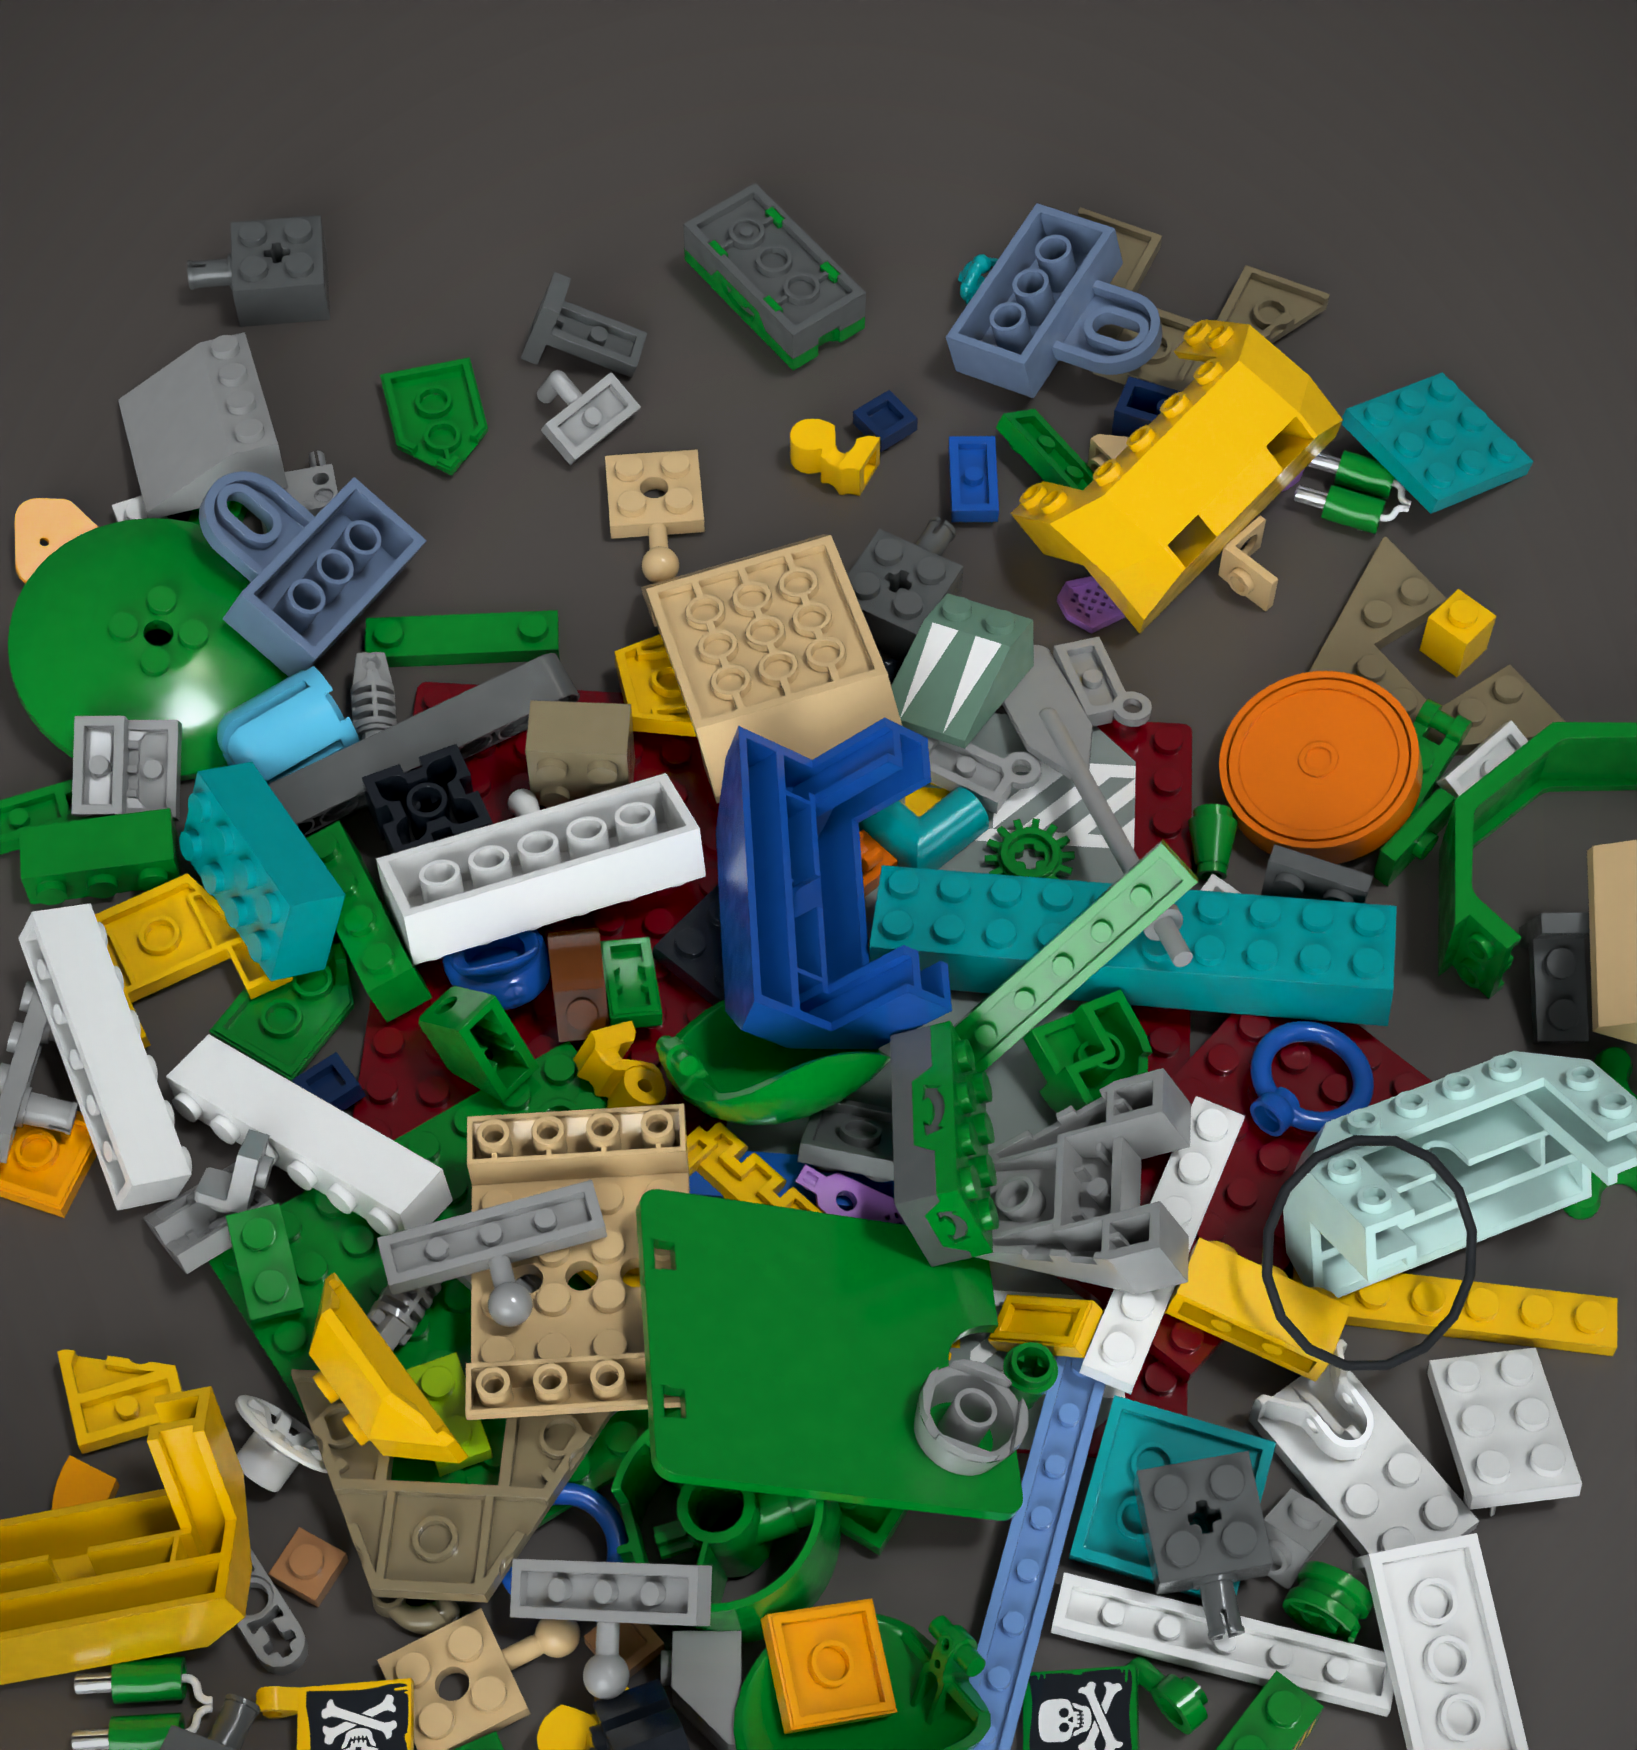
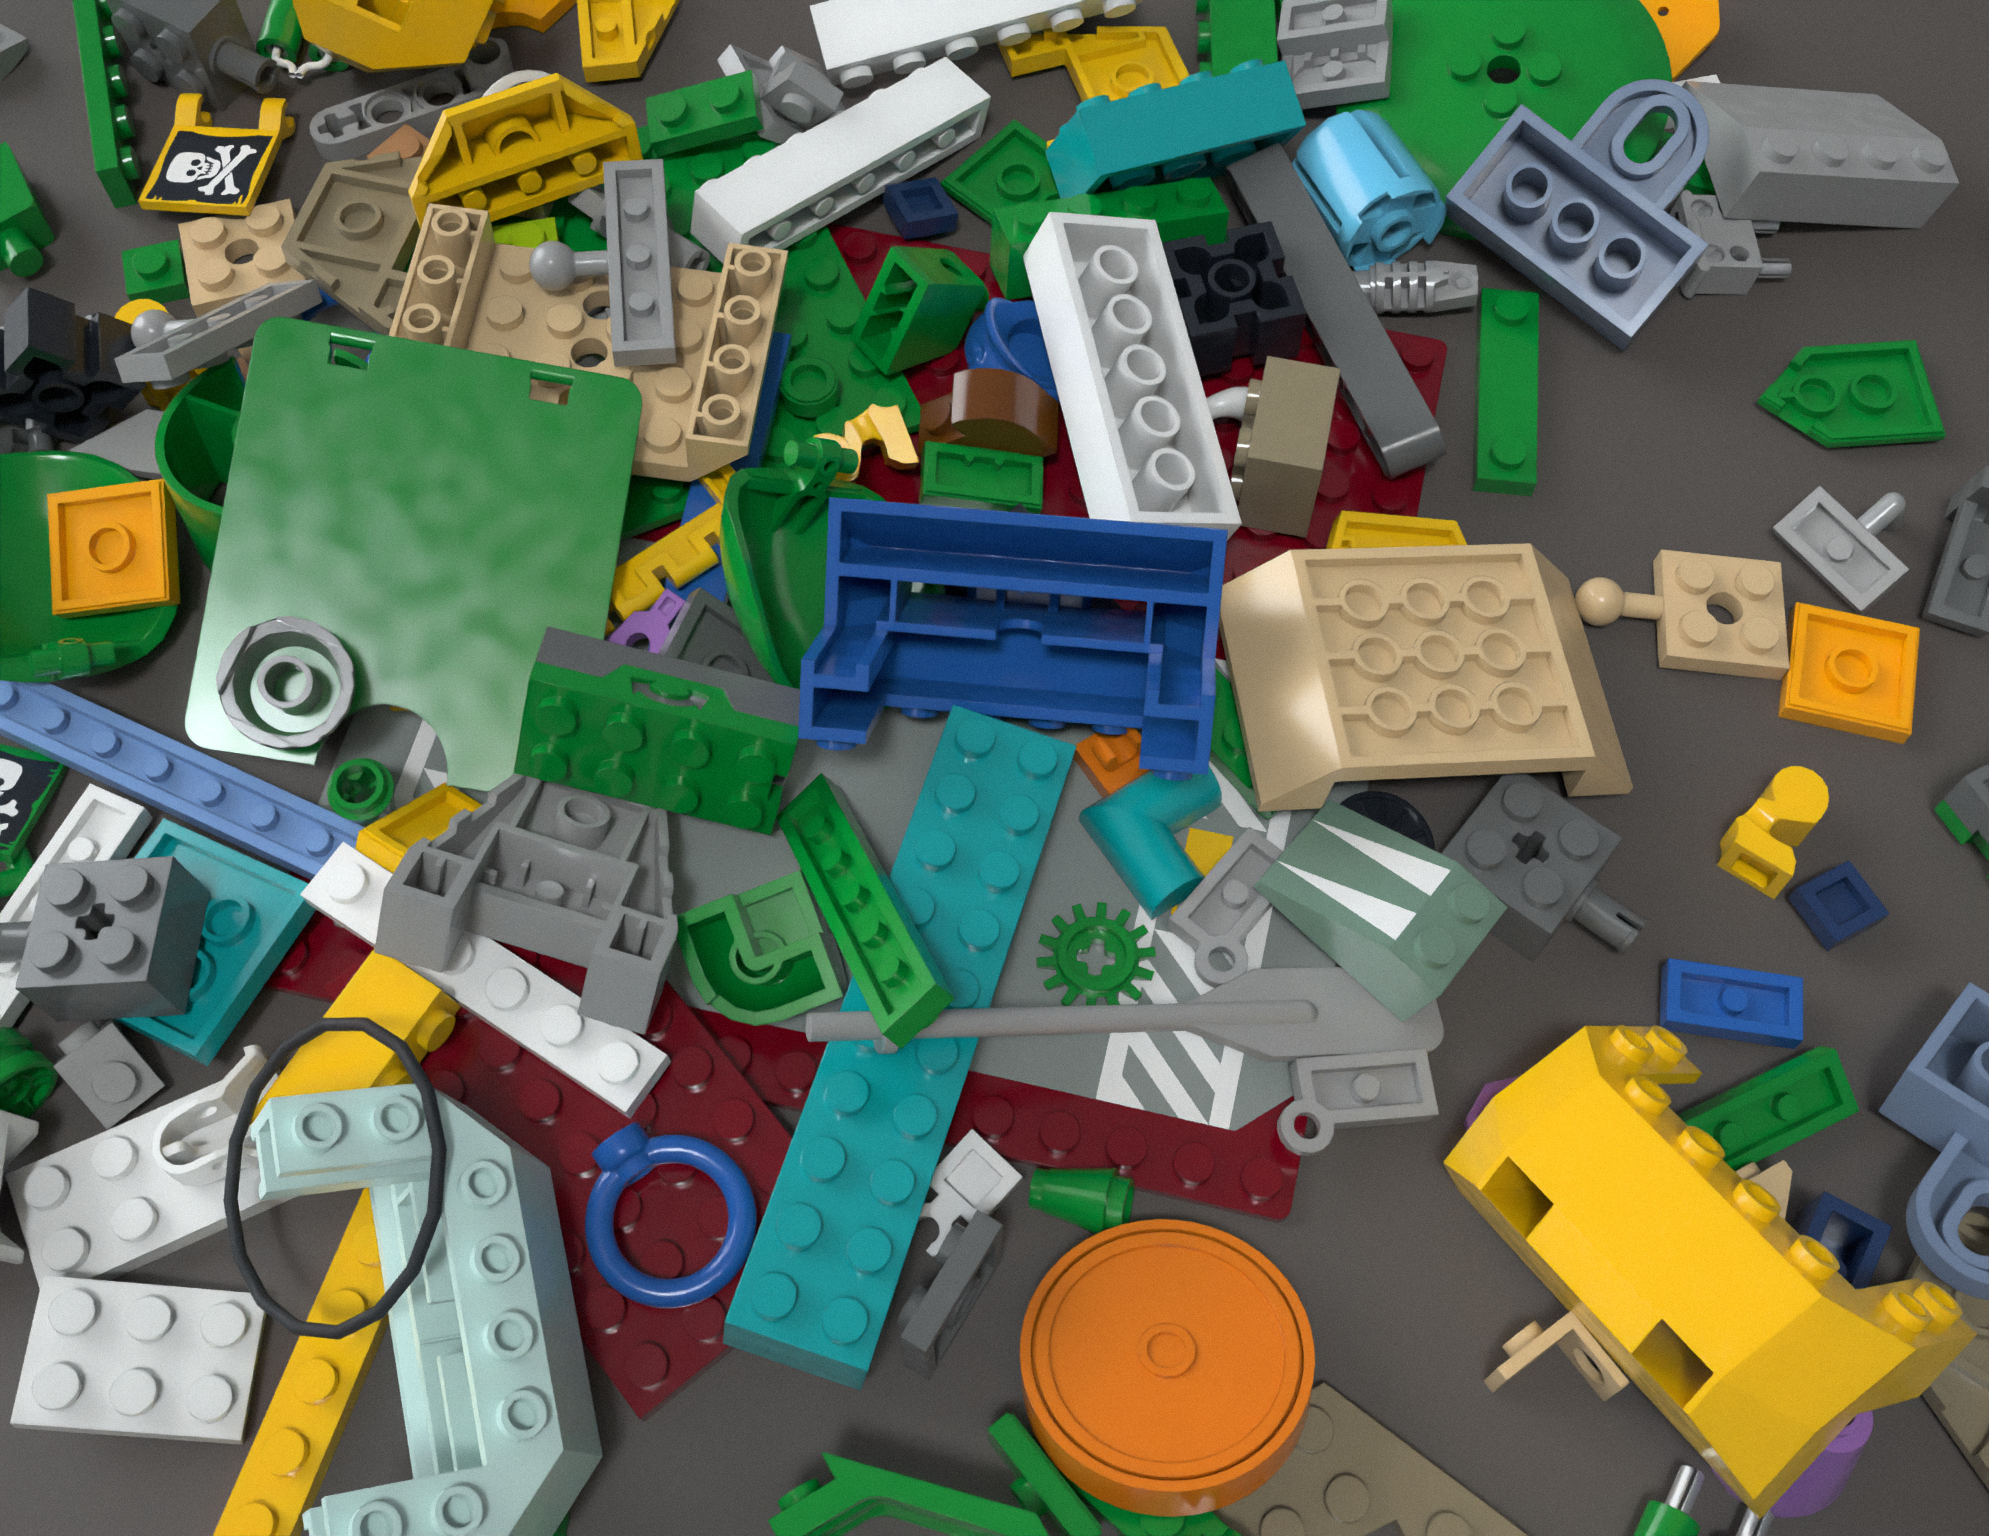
camera: 100 degrees right, 5 degrees up
(689, 416) = (1850, 673): none -> light orange tile

